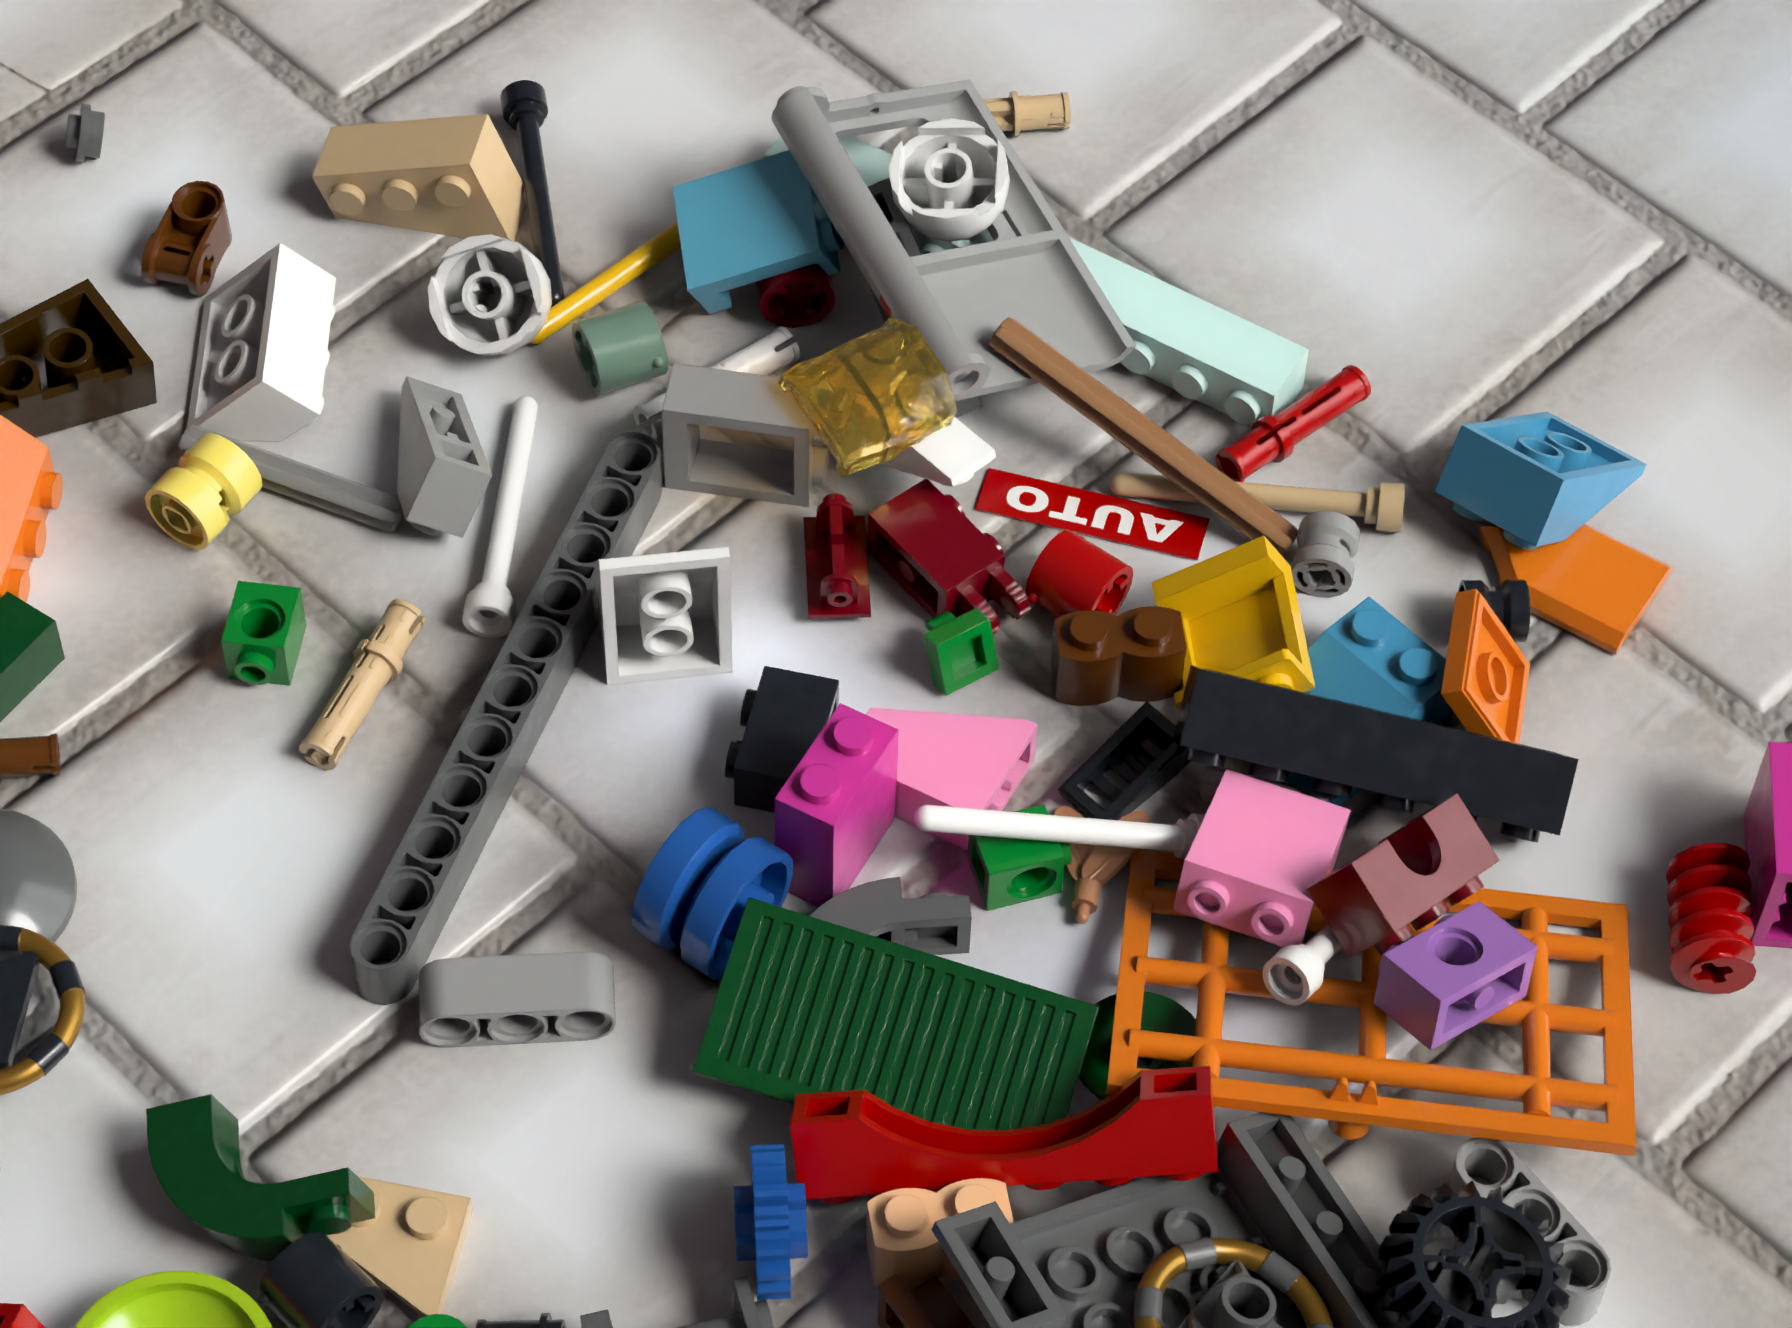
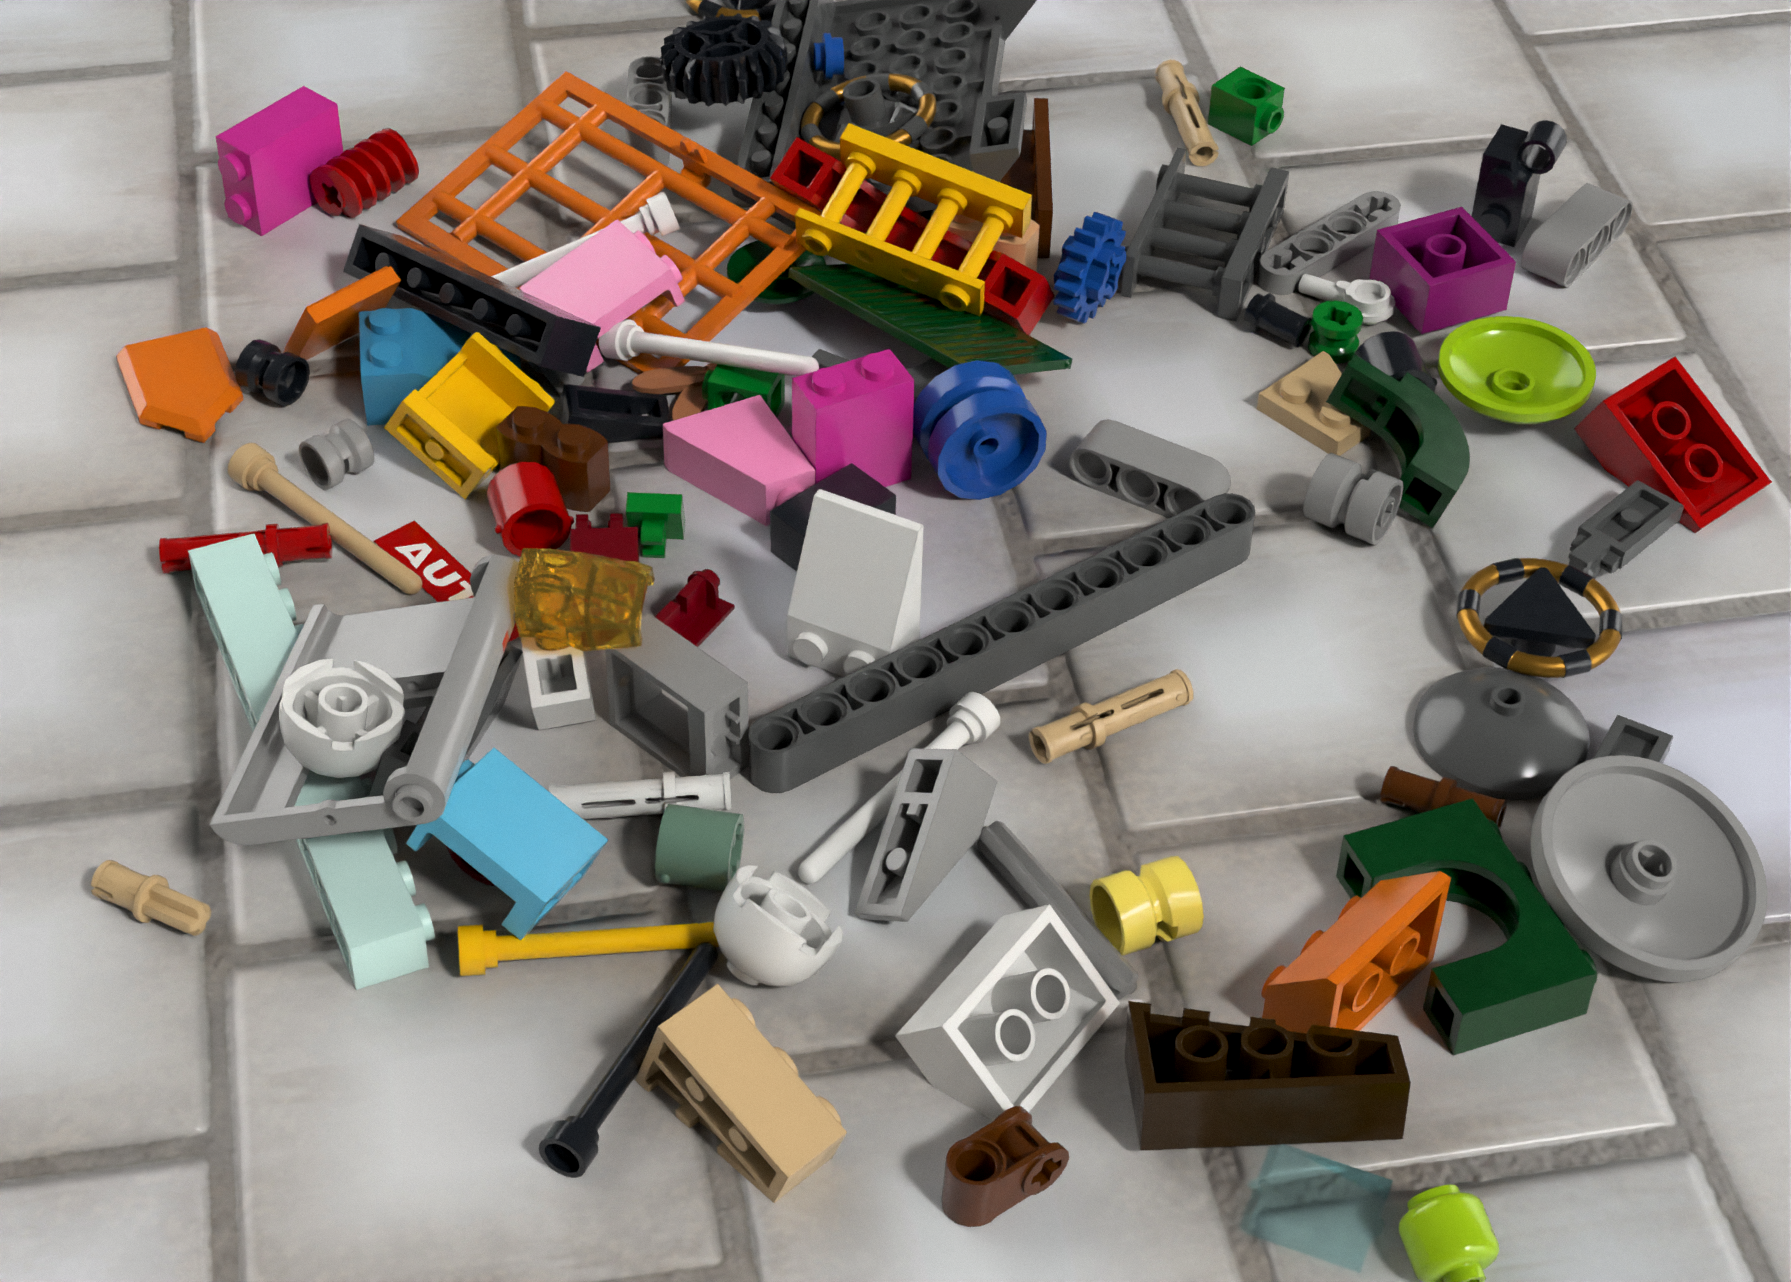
camera: 145 degrees left, 10 degrees down
(263, 633) = (1167, 779): green brick -> none
(291, 1065) = (1357, 500): none -> light grey wheel
(1004, 1138) = (931, 179): none -> yellow fence
(1141, 435) = (386, 552): medium nougat axle -> none
(1405, 879) = (550, 216): arch -> none
(1454, 975) = (569, 171): medium lavender brick -> none
(1534, 476) = (138, 410): dark azure slope -> none

